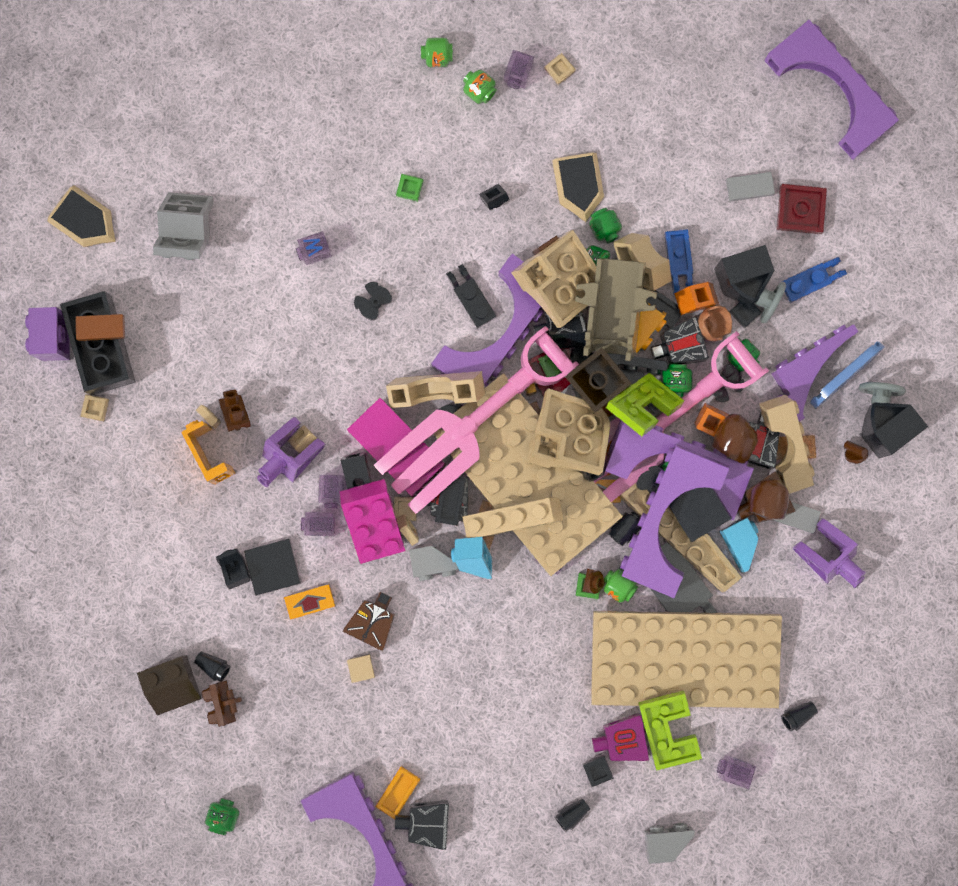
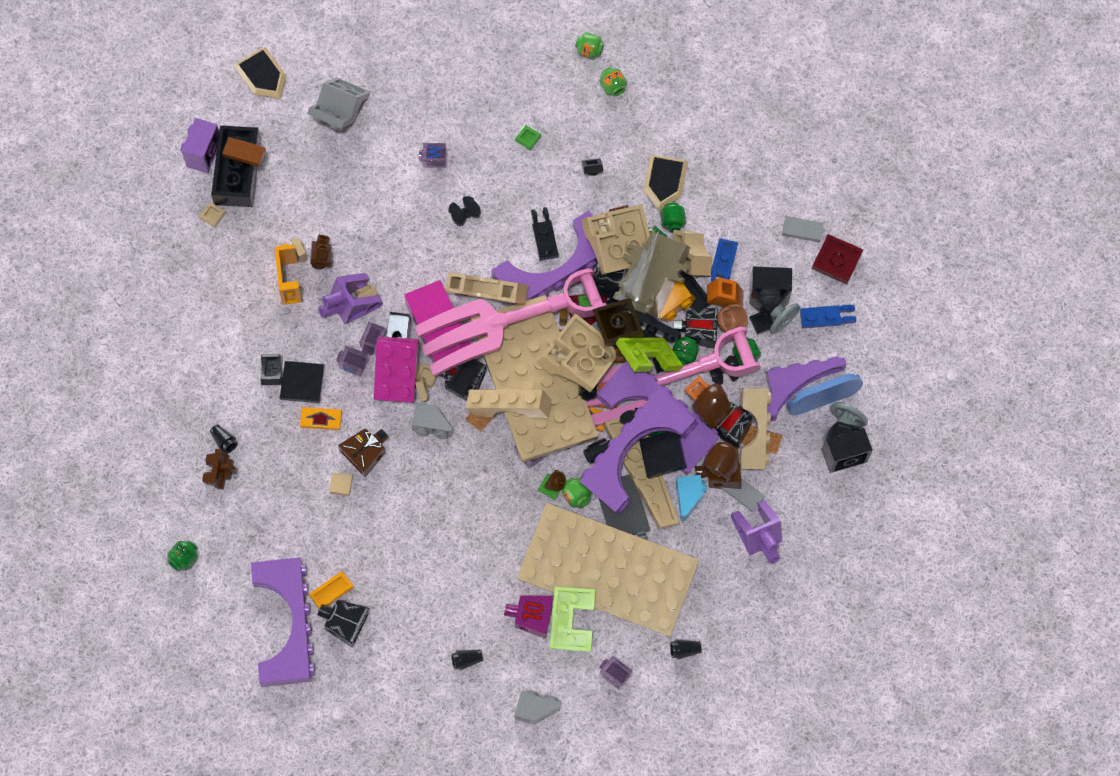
camera: 20 degrees right, 15 degrees down
(169, 685) = (183, 439): dark brown slope -> none
(472, 557) = (466, 425): medium azure slope -> none
(518, 69) = (649, 79): clear purple brick -> none
(559, 68) = (683, 90): tan tile -> none
(597, 771) = (501, 632): black plate -> none
(811, 50) = (888, 142): medium lavender arch -> none
(855, 453) = (811, 459): reddish brown plate -> none

